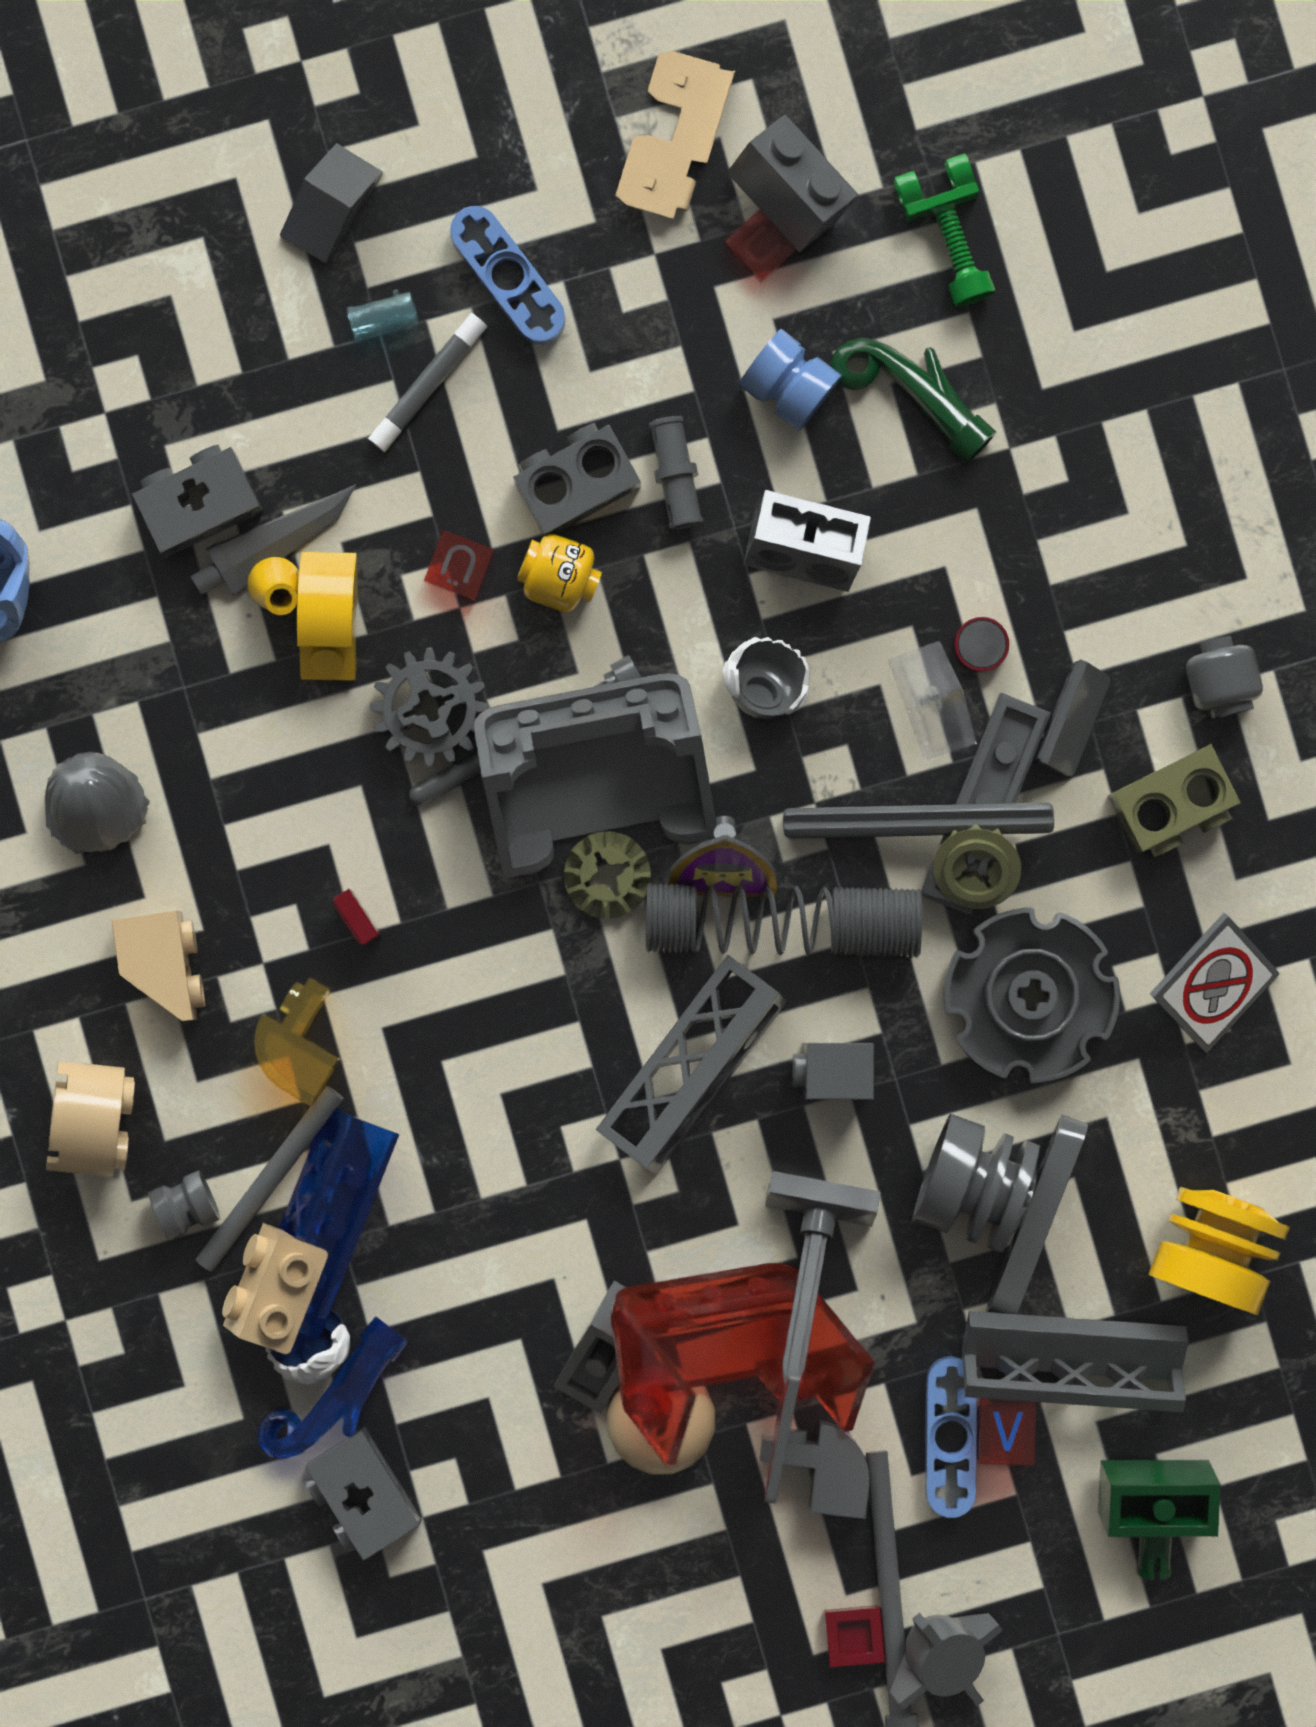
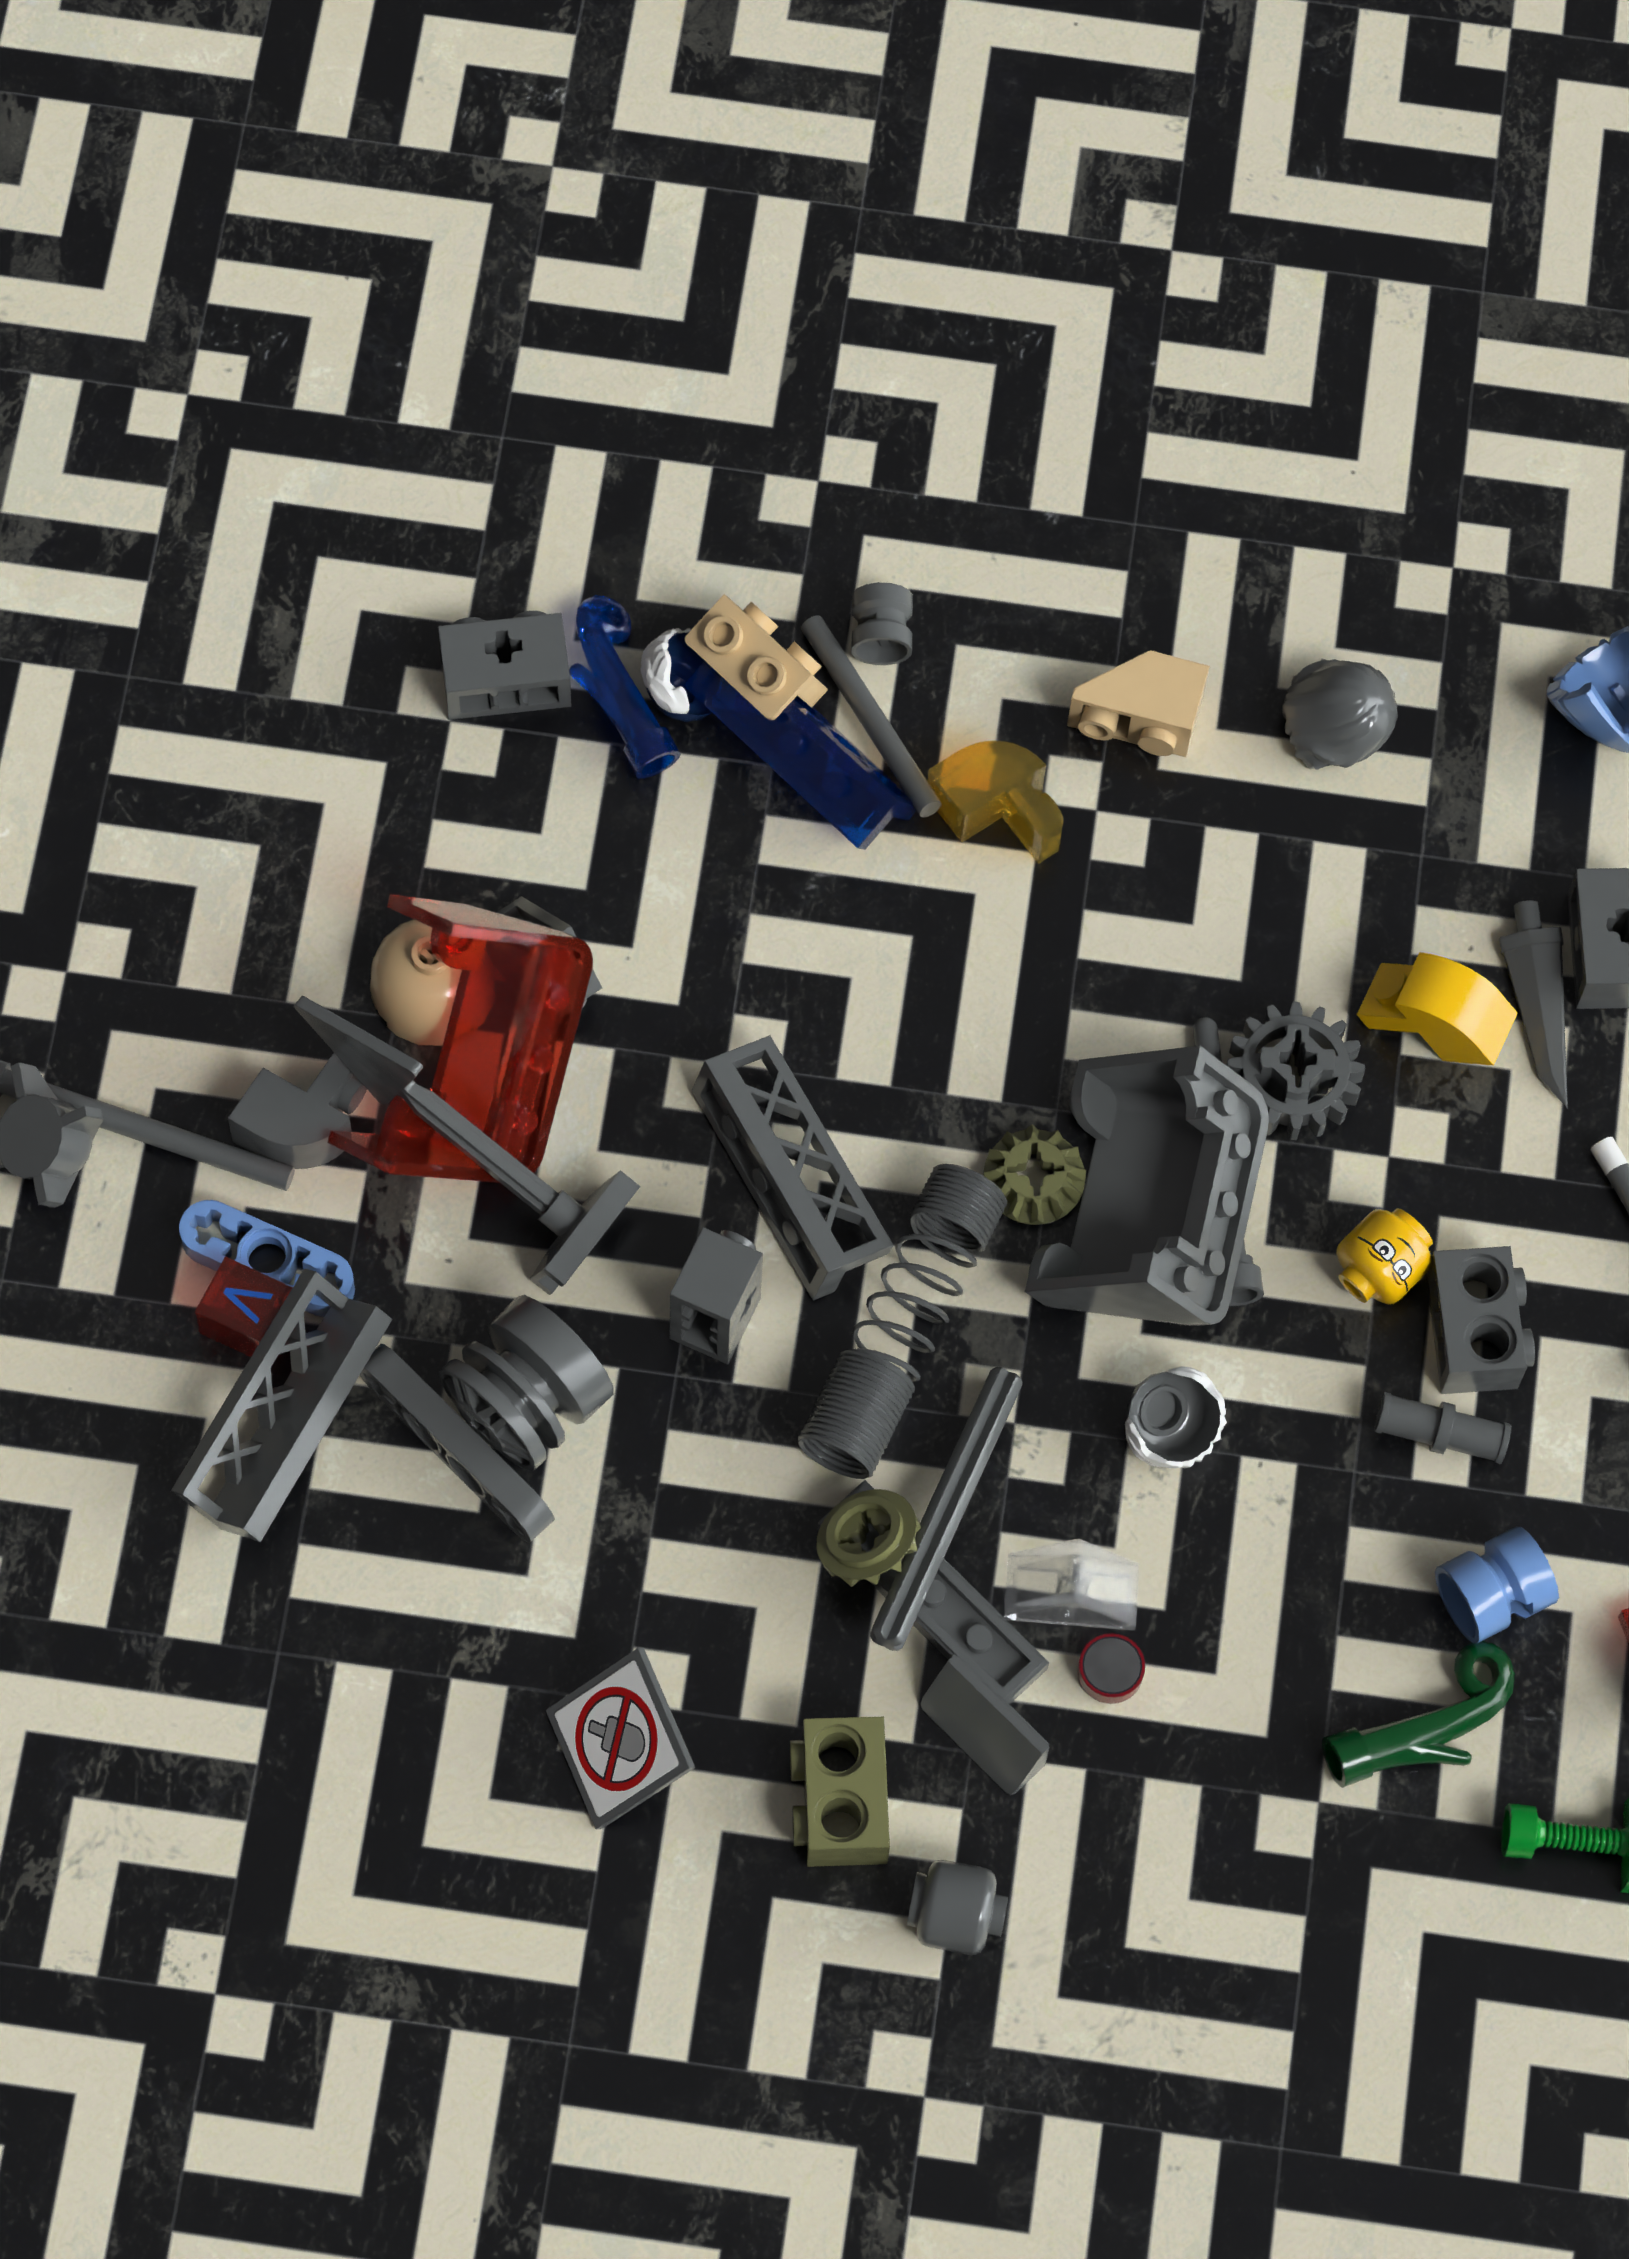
camera: 115 degrees right, 20 degrees down
(88, 1119) = (1014, 564): tan brick -> none
(269, 576) = (1494, 964): yellow cone -> none
(356, 917) = (1103, 907): dark red tile -> none
(459, 565) = (1435, 1170): clear red tile -> none
(725, 865) = (997, 1283): shield -> none
(807, 540) = (1309, 1520): dark grey brick -> none
(854, 1636) = (110, 1071): dark red tile -> none
(1066, 967) = (710, 1590): dark grey piece -> none
(1158, 1503) = (86, 1425): dark green brick -> none
(1219, 1249) = (325, 1602): yellow wheel -> none

